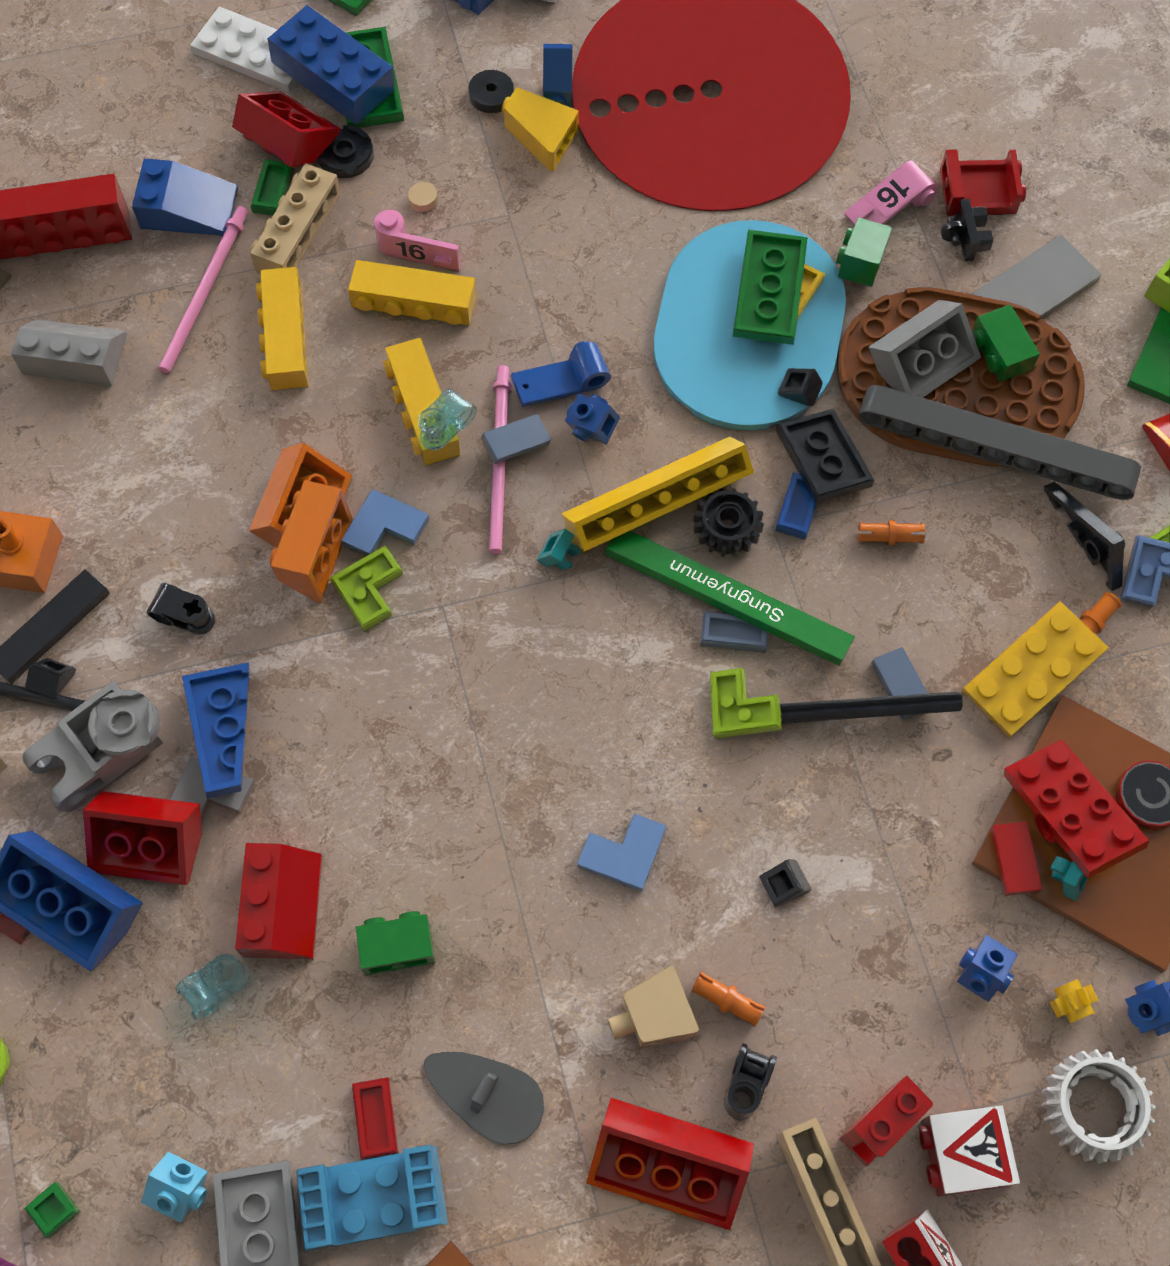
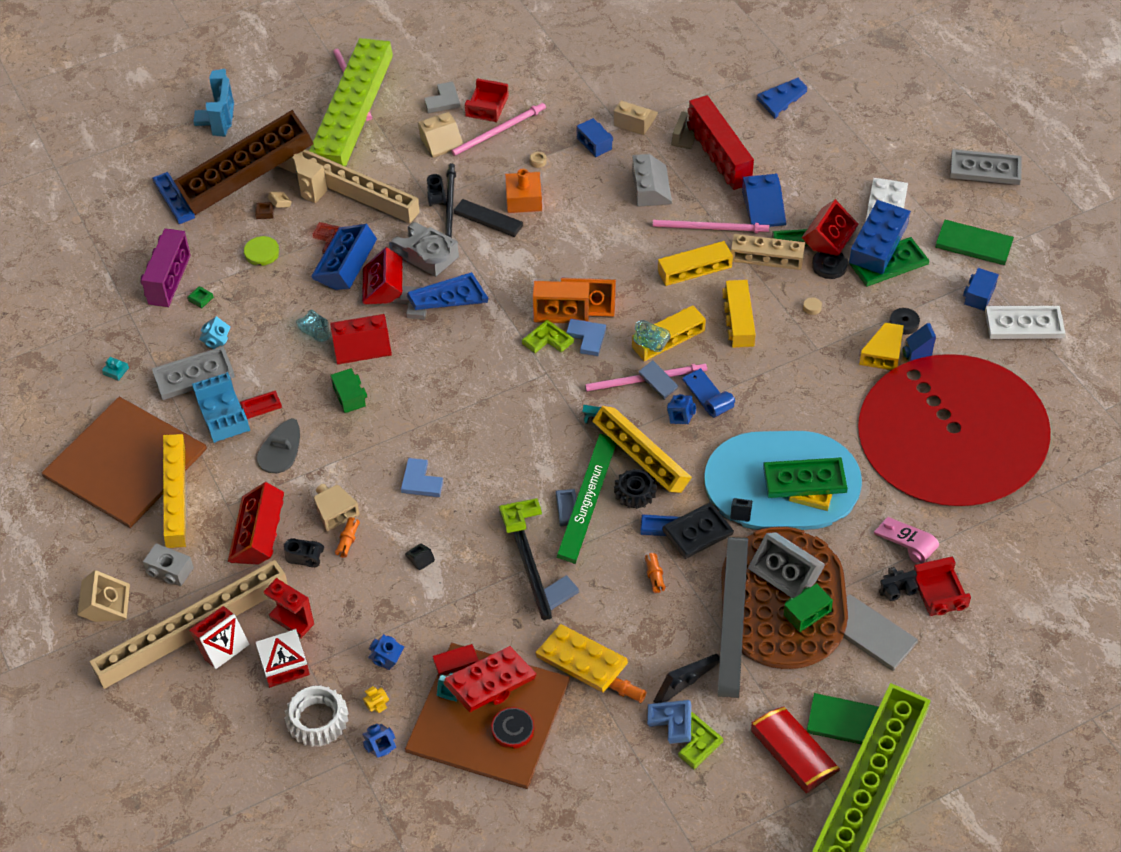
camera: 80 degrees right, 15 degrees down
(48, 677) = (459, 224): black slope -> none
(181, 609) = (510, 264): black piece -> none
(396, 243) = (775, 299): bright pink door -> none
(863, 251) = (854, 525): brick -> none

